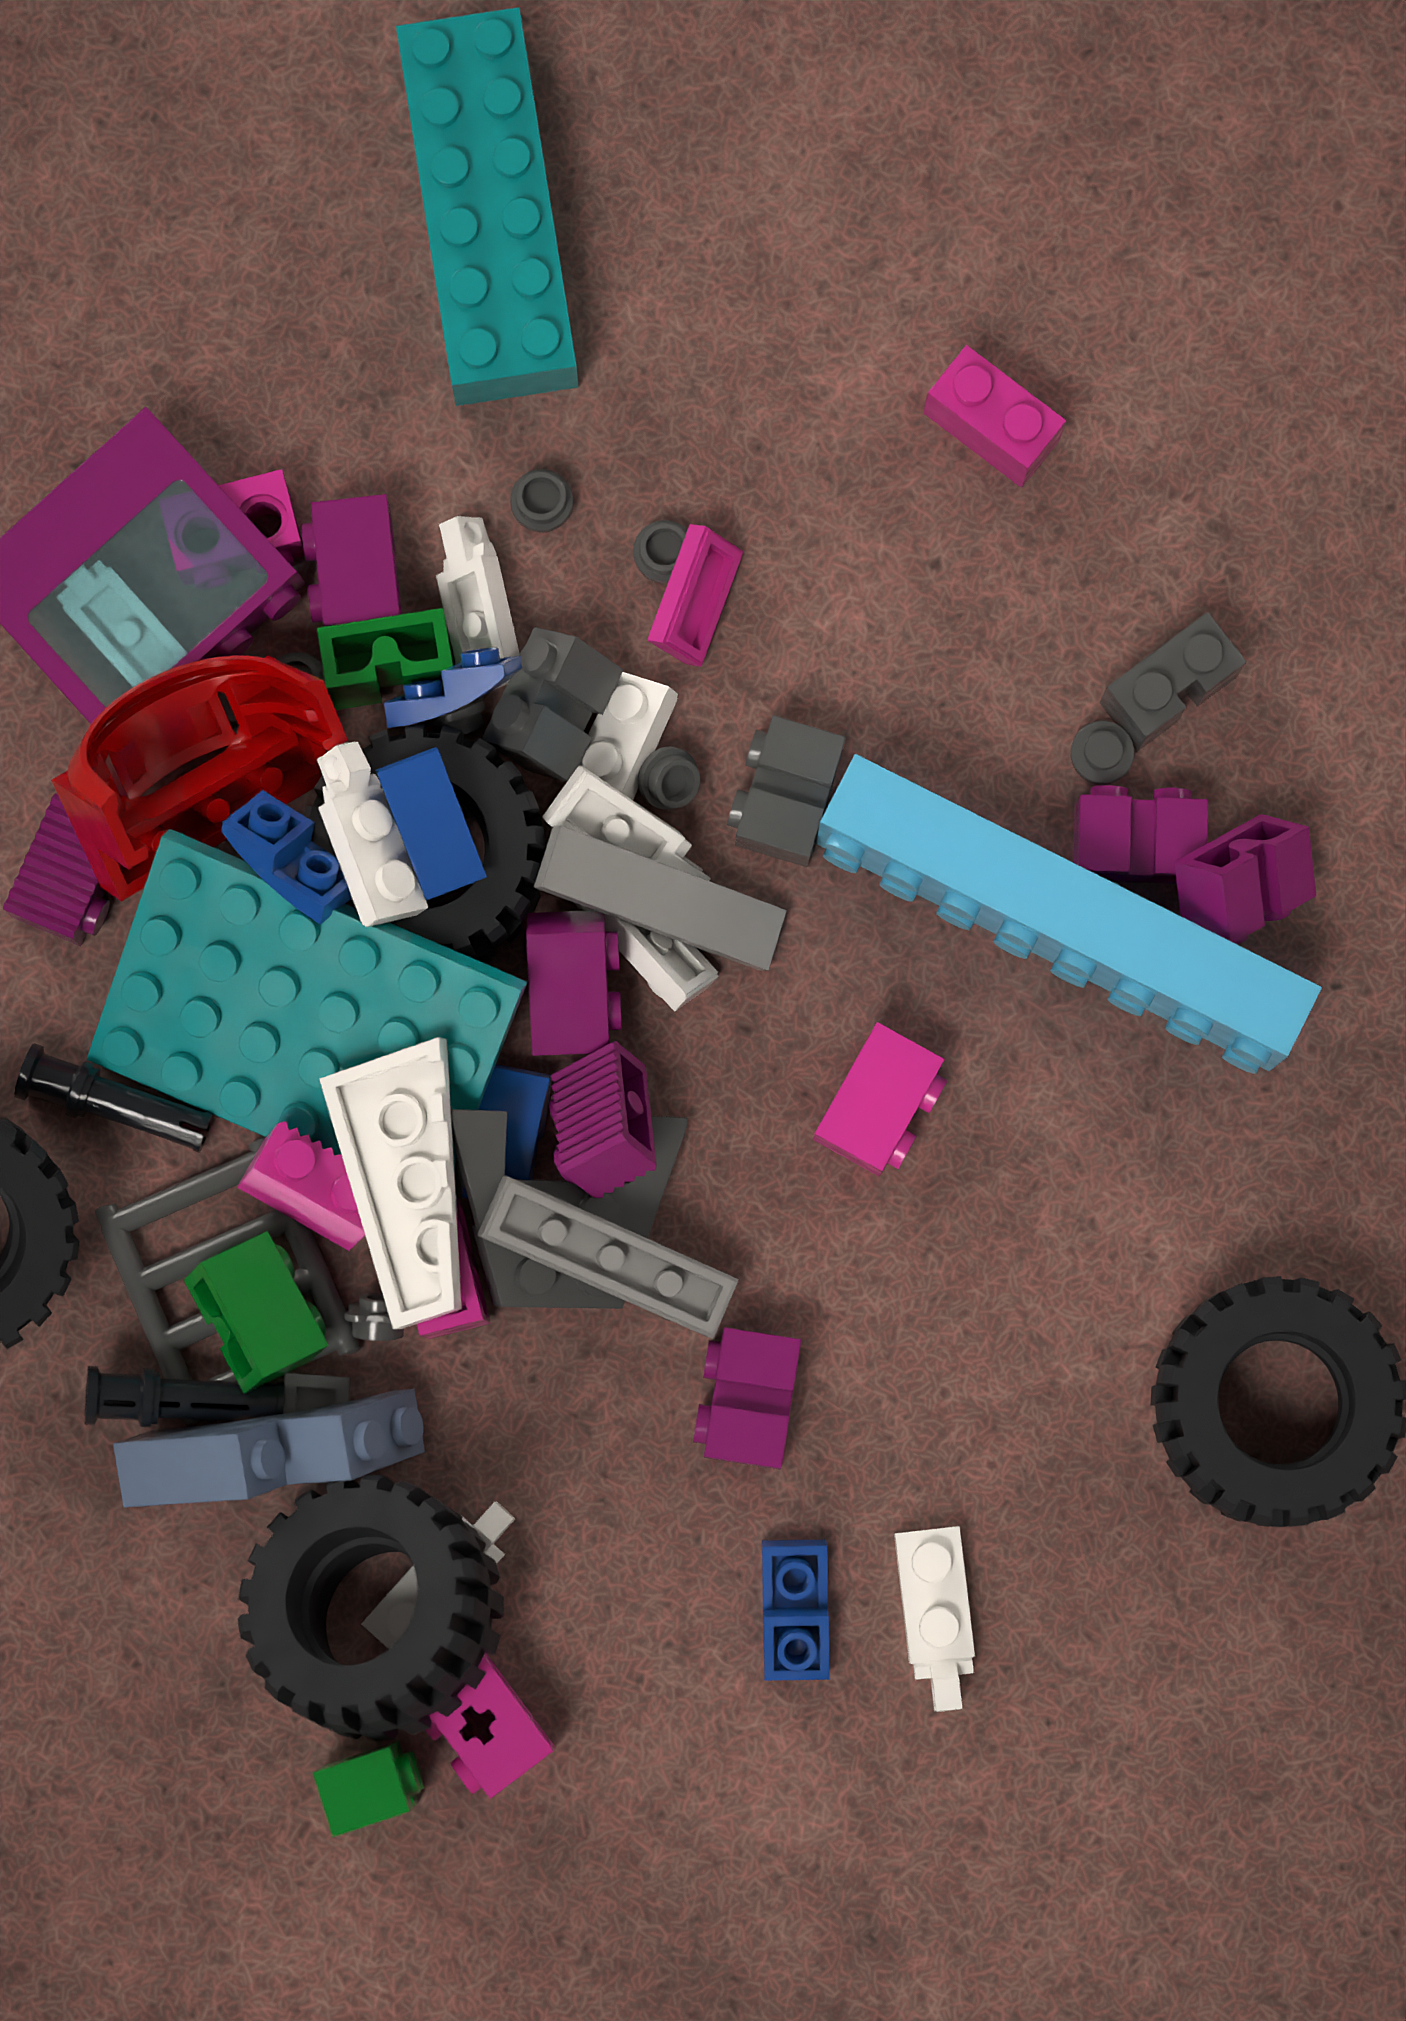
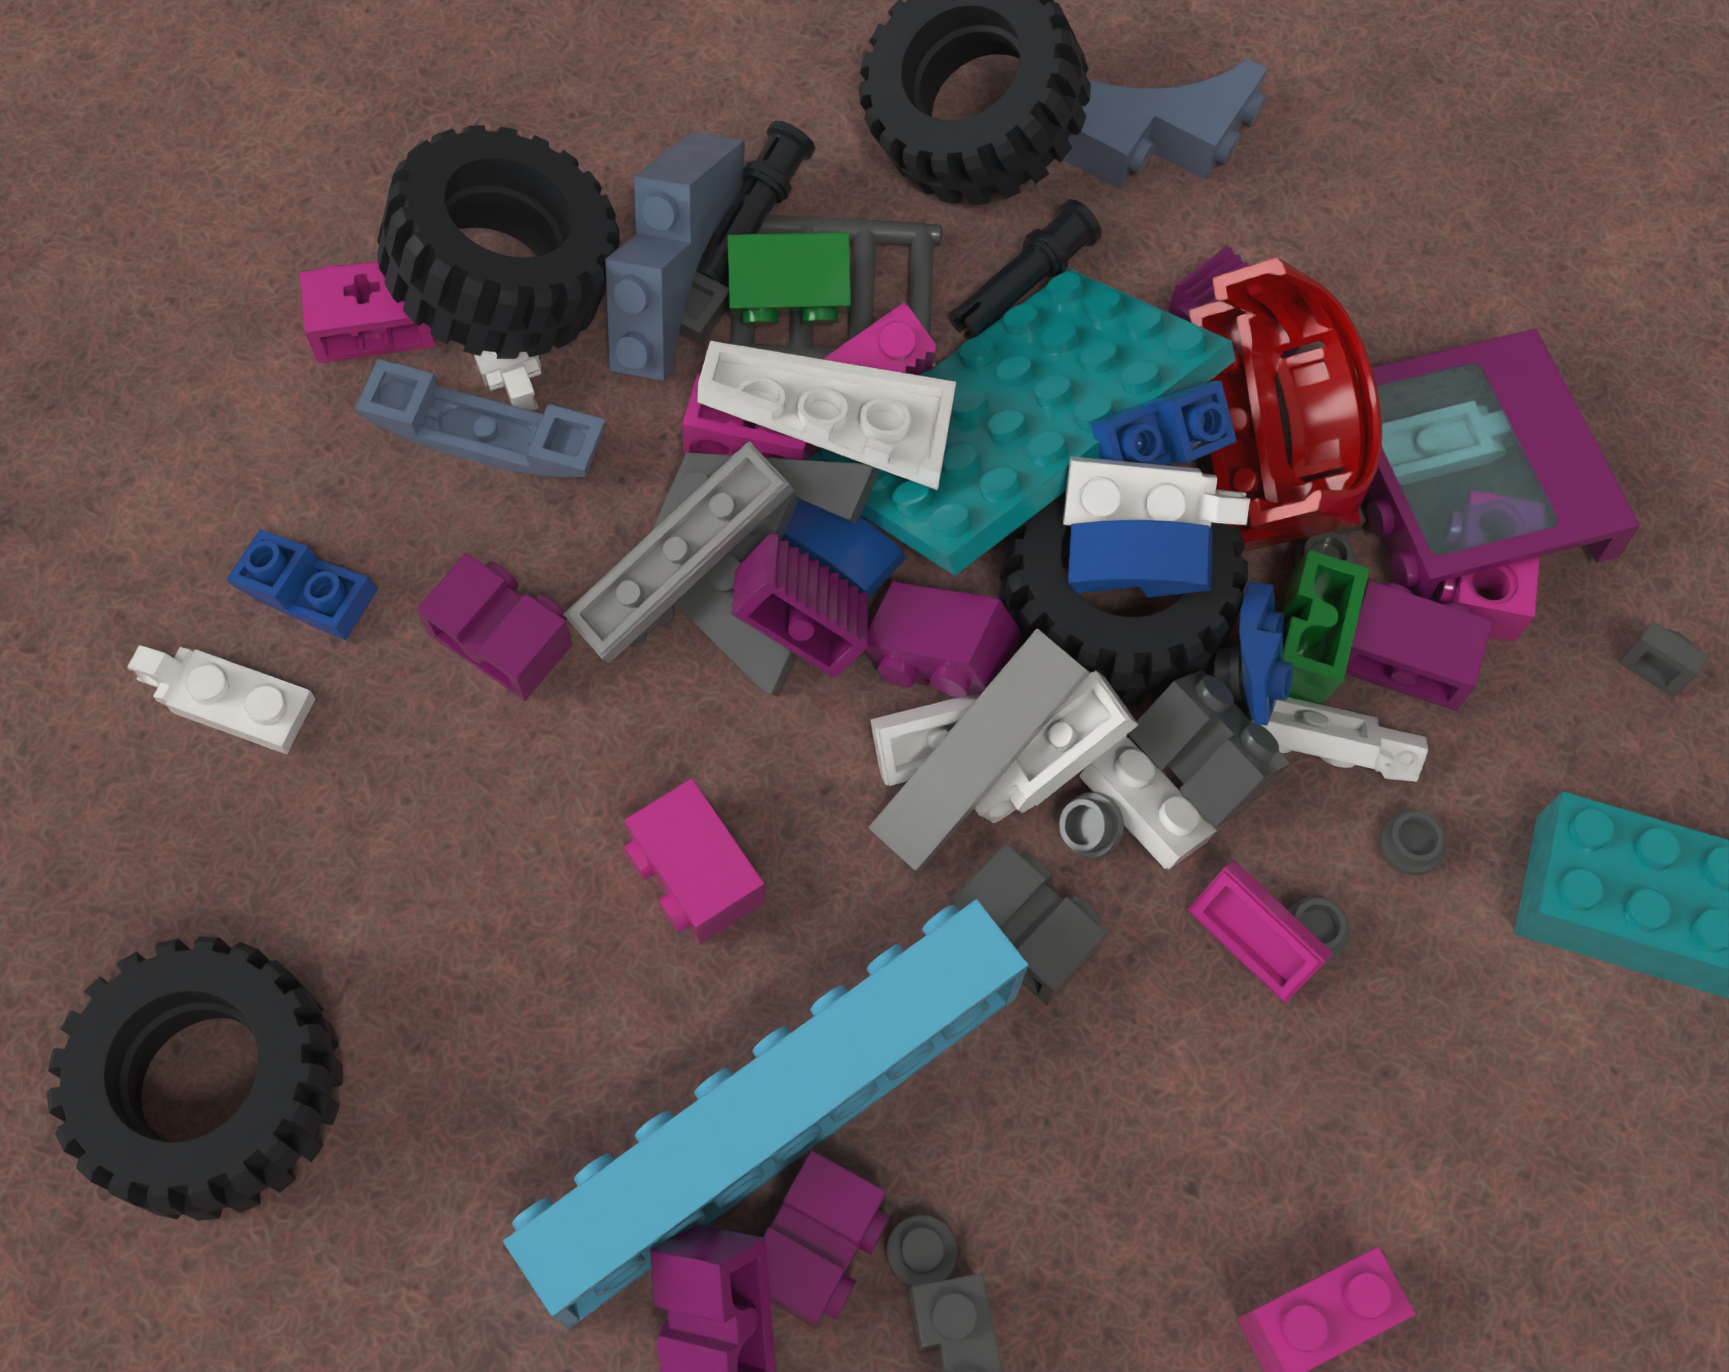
camera: 115 degrees right, 15 degrees down
(252, 345) = (1664, 659): none -> dark grey plate
(369, 1787) = (357, 183): green brick -> none
(550, 1534) = (477, 428): none -> sand blue slope

